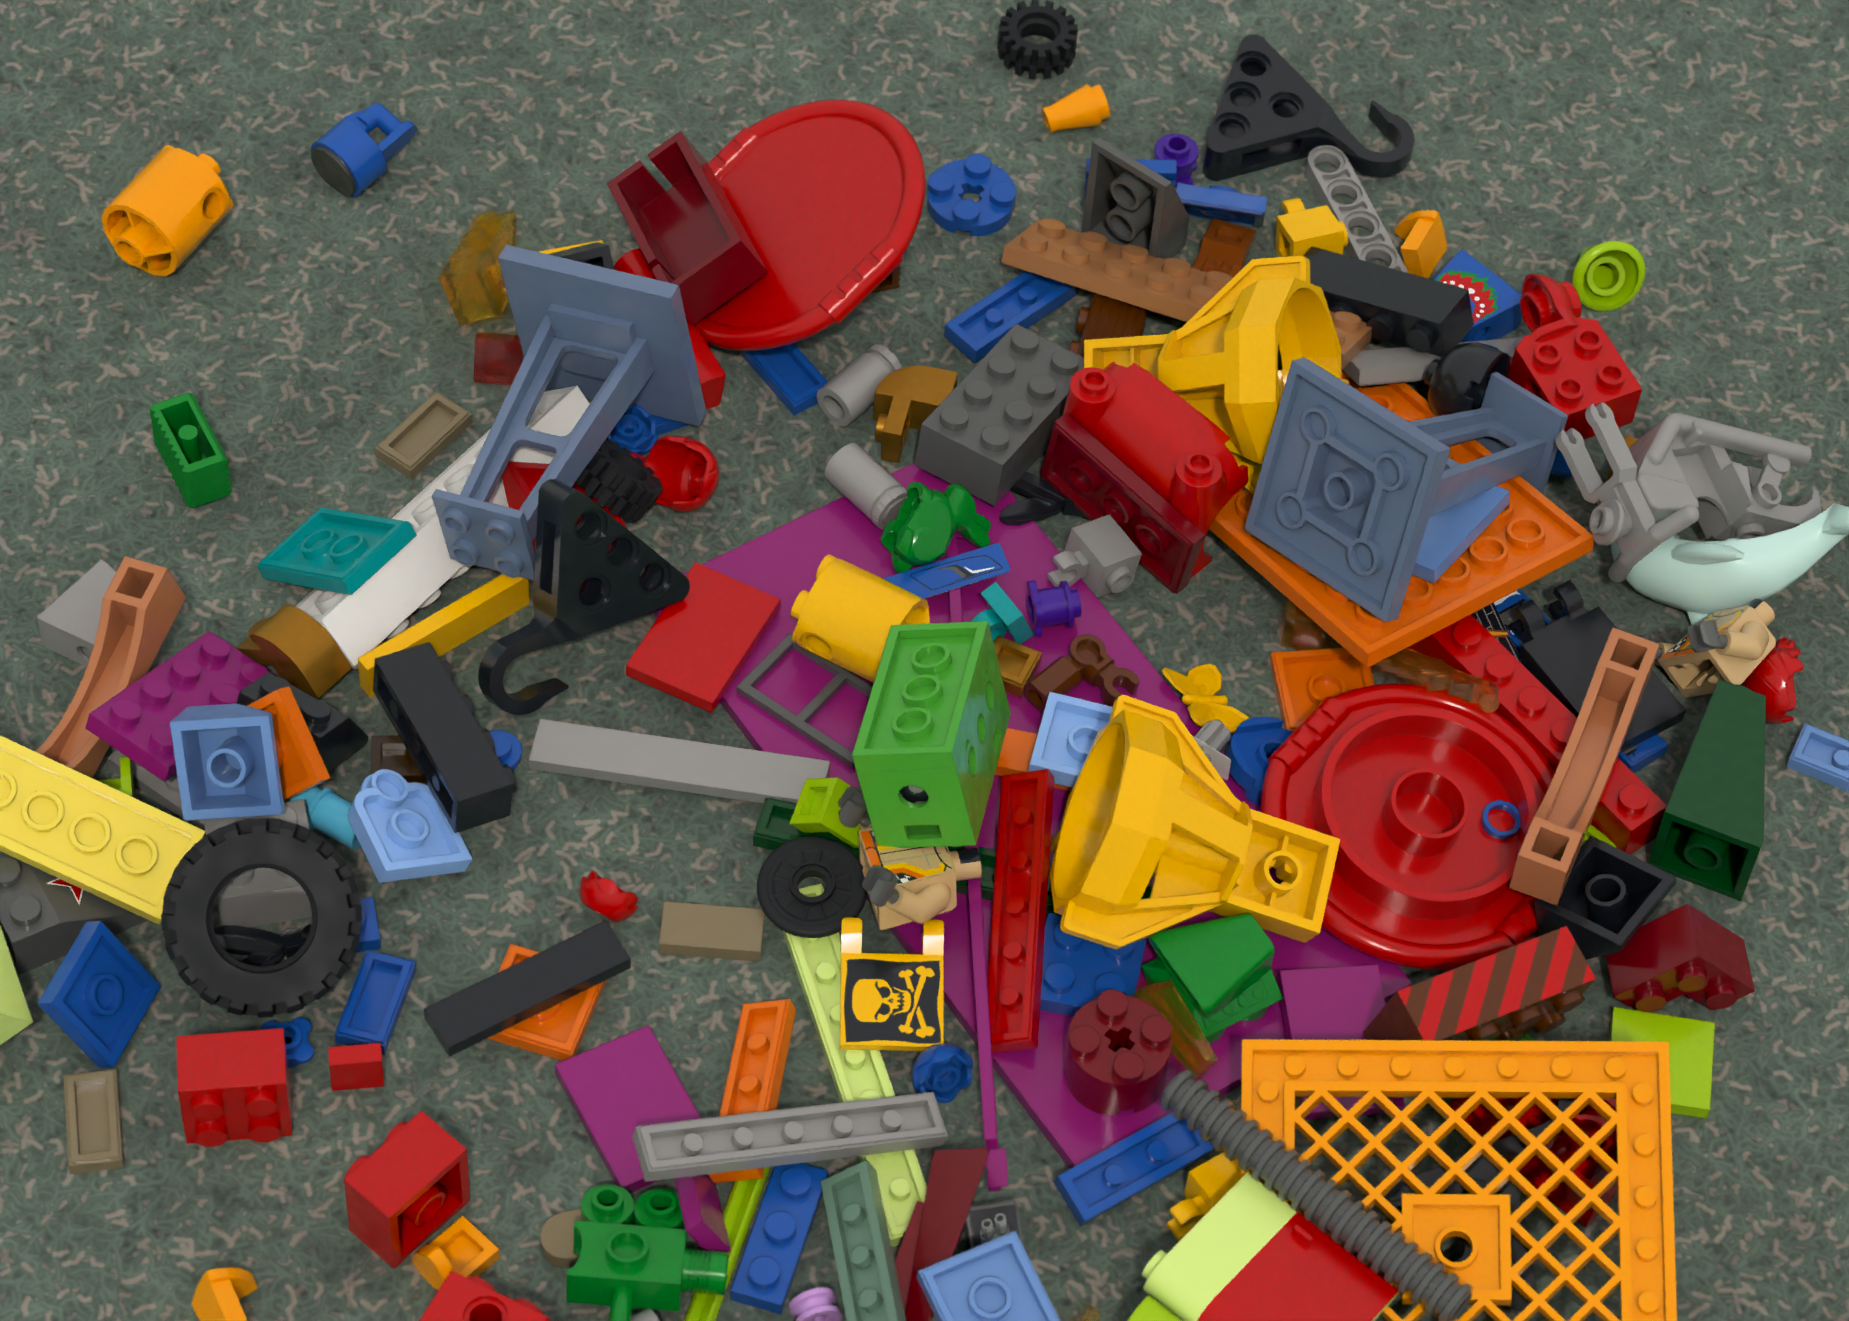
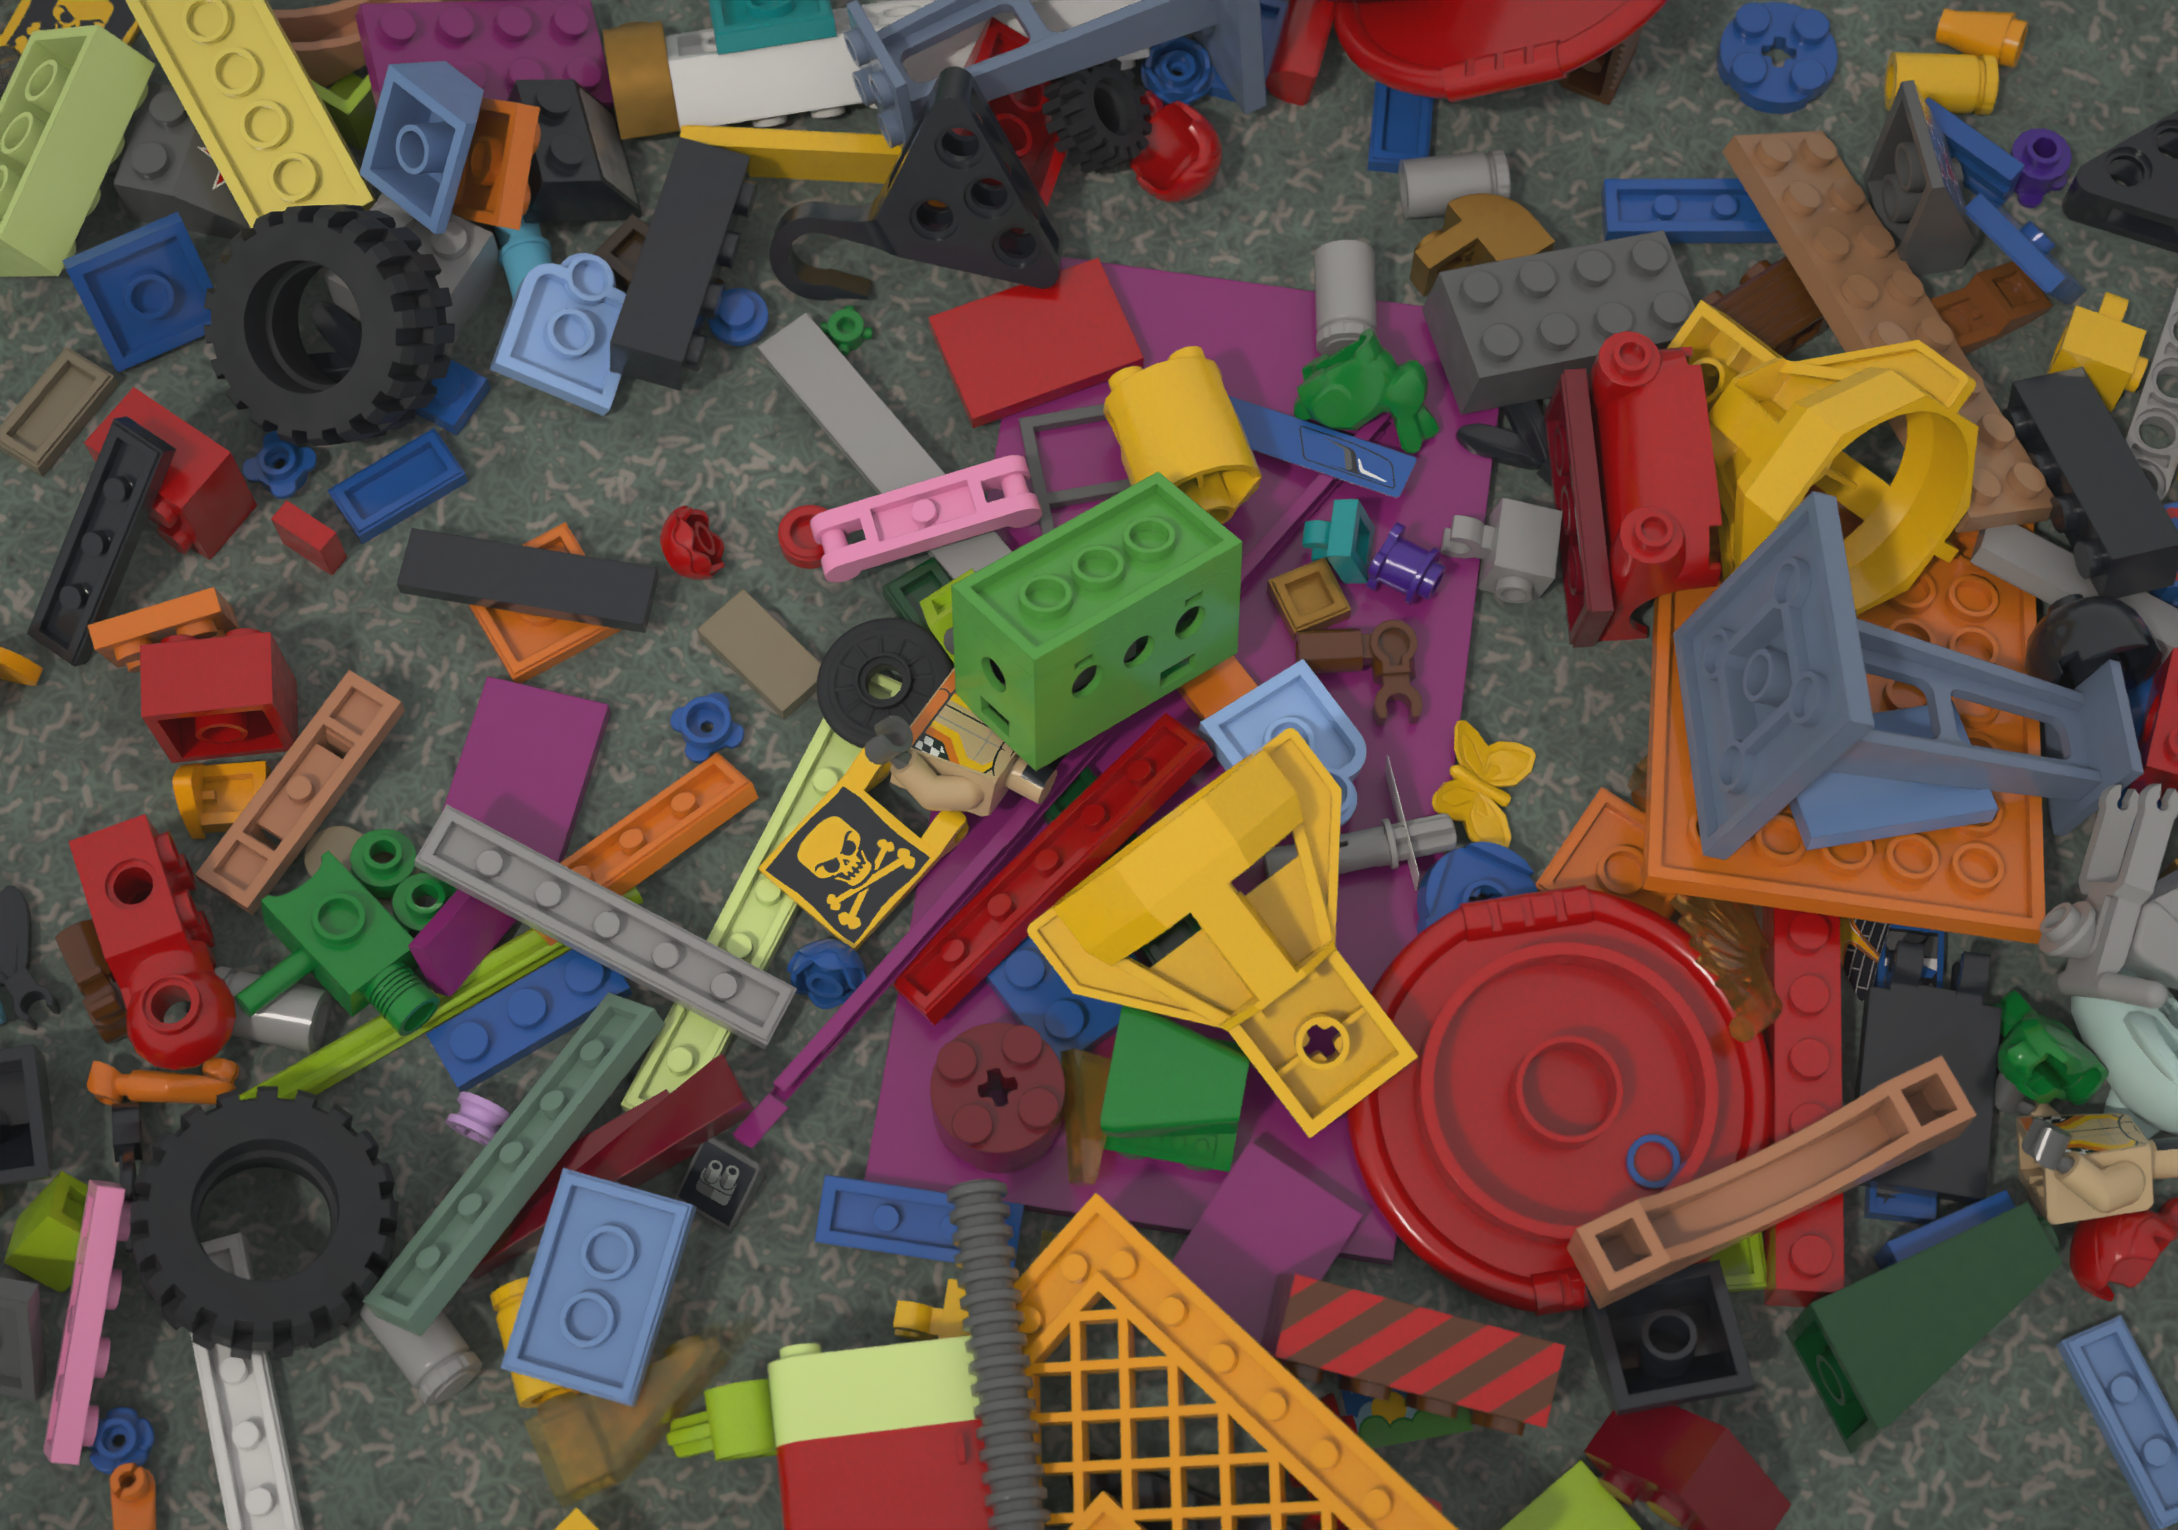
camera: 45 degrees right, 15 degrees up
(238, 1151) = (101, 539): none -> black tile
(322, 1187) = (196, 614): none -> orange plate
(512, 1206) = (300, 792): none -> nougat hinge
(572, 711) = (846, 330): none -> green piece
(670, 846) = (797, 538): none -> red tile
(722, 982) = (703, 710): none -> blue plate
(744, 774) = (925, 516): none -> bright pink plate
(1067, 155) = (1951, 80): none -> yellow piece
(1644, 612) = (2045, 1055): none -> green animal
(1680, 747) = (1942, 1229): none -> blue tile

